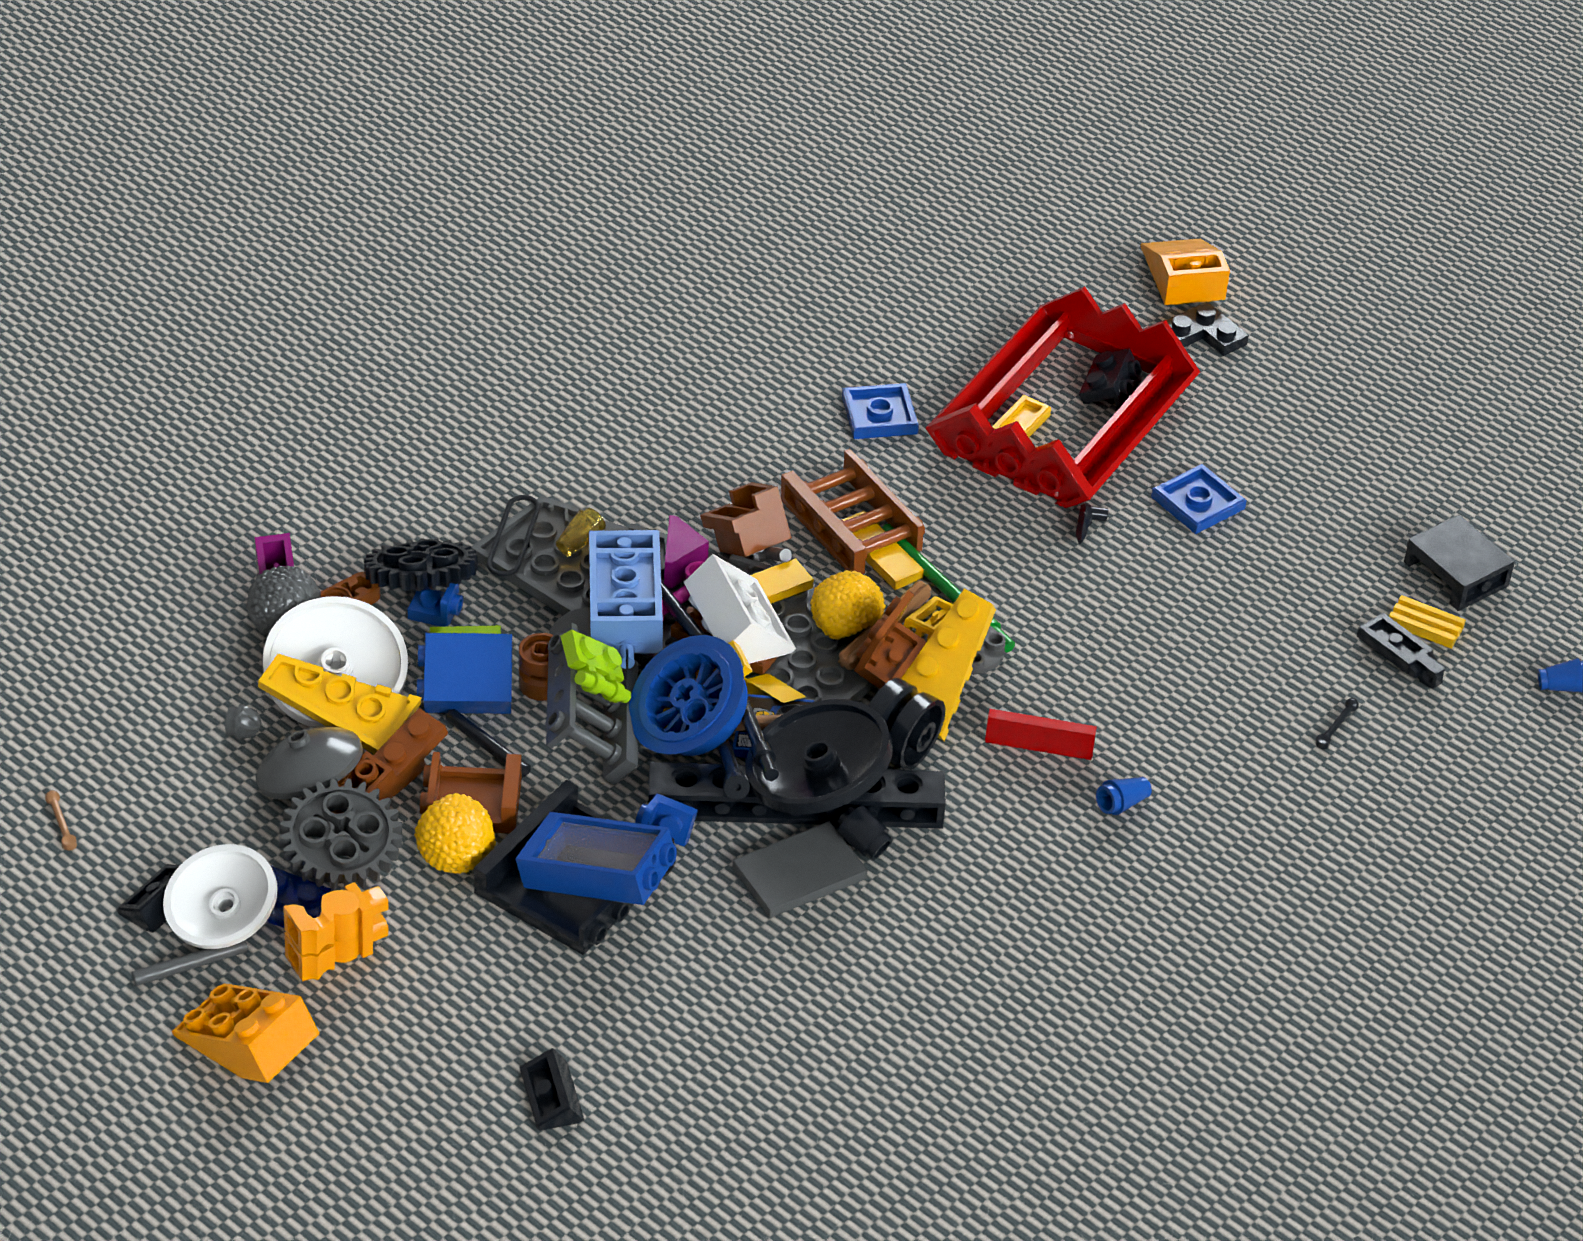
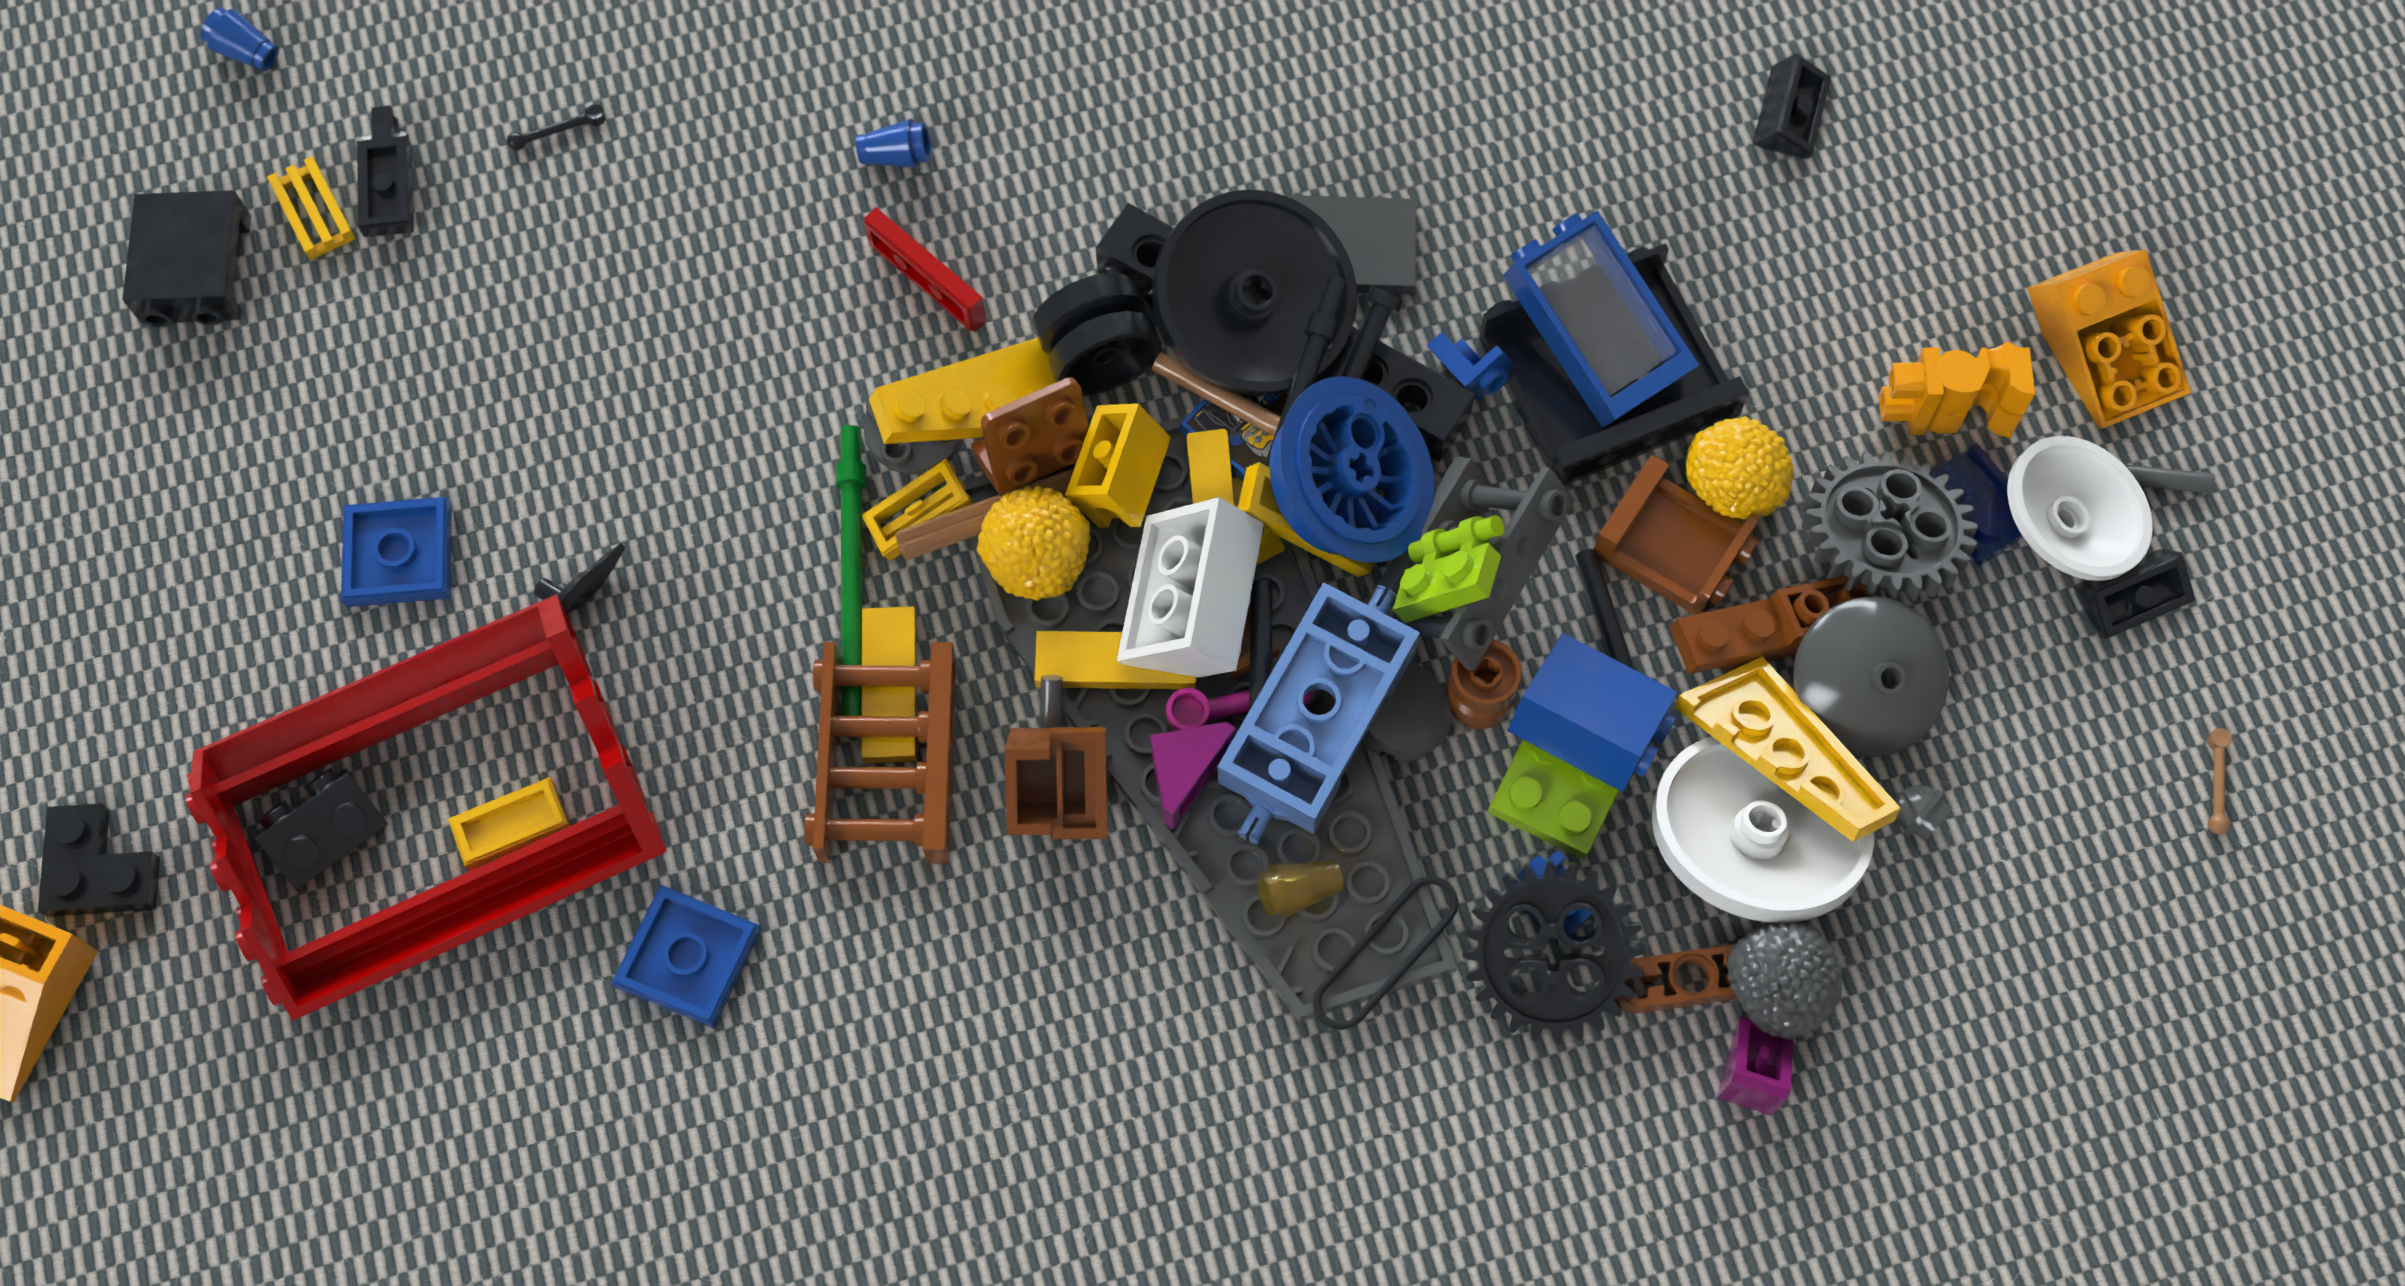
camera: 145 degrees left, 25 degrees up
(830, 654) = (1118, 465): none -> yellow brick

